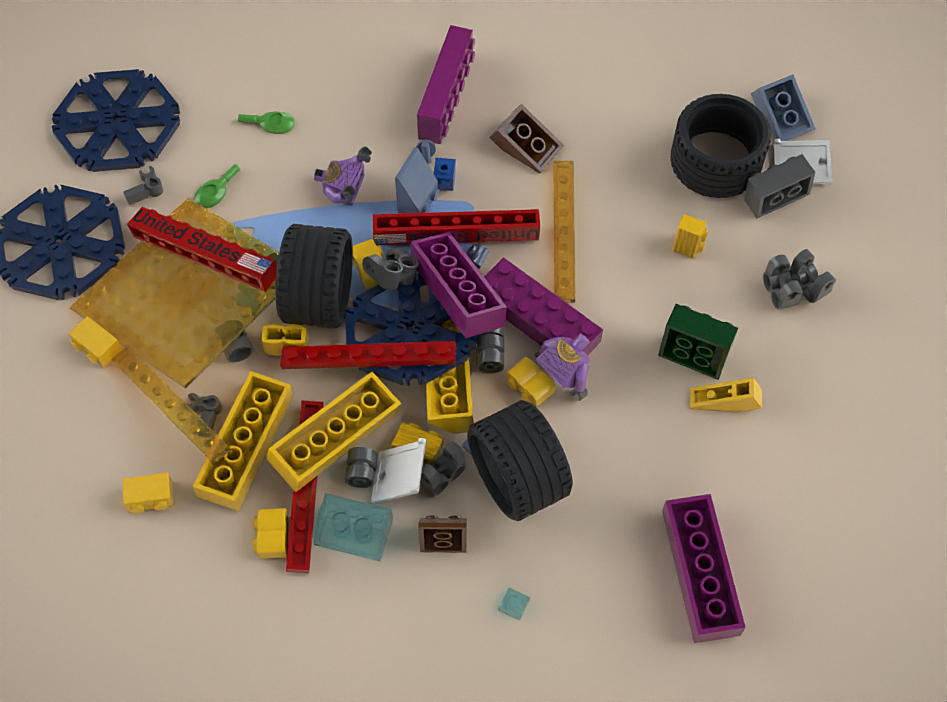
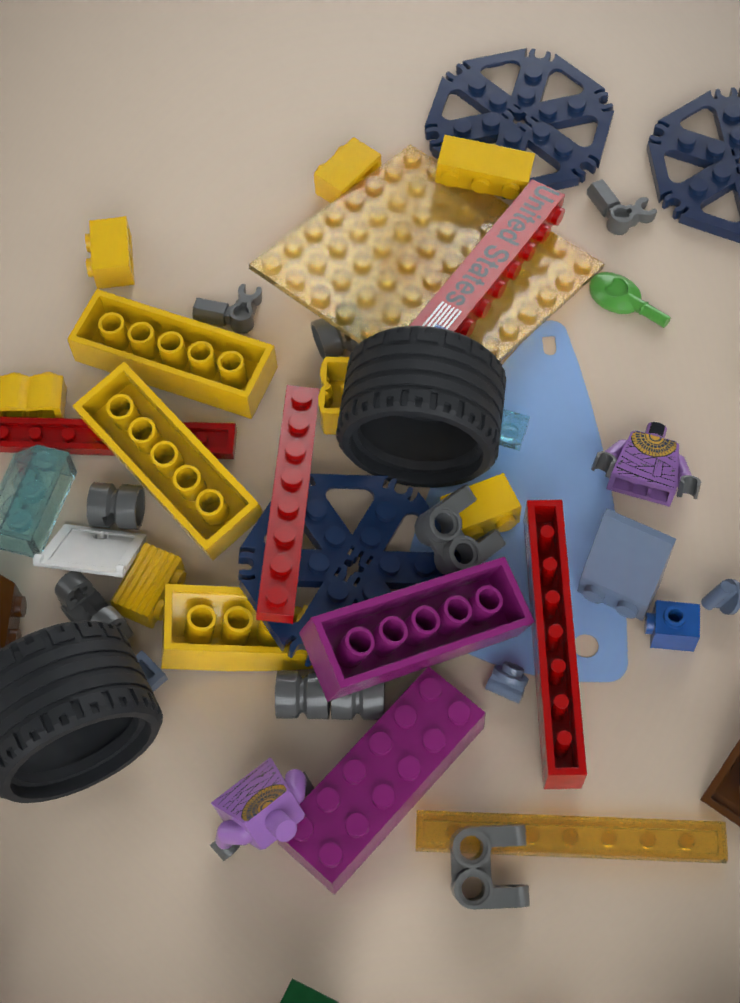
camera: 95 degrees right, 0 degrees up
(109, 254) = (483, 167): none -> yellow brick
(171, 405) = (215, 267): clear yellow tile -> none
(530, 382) = (250, 749): yellow brick -> none
(580, 267) = (480, 866): none -> dark grey piece

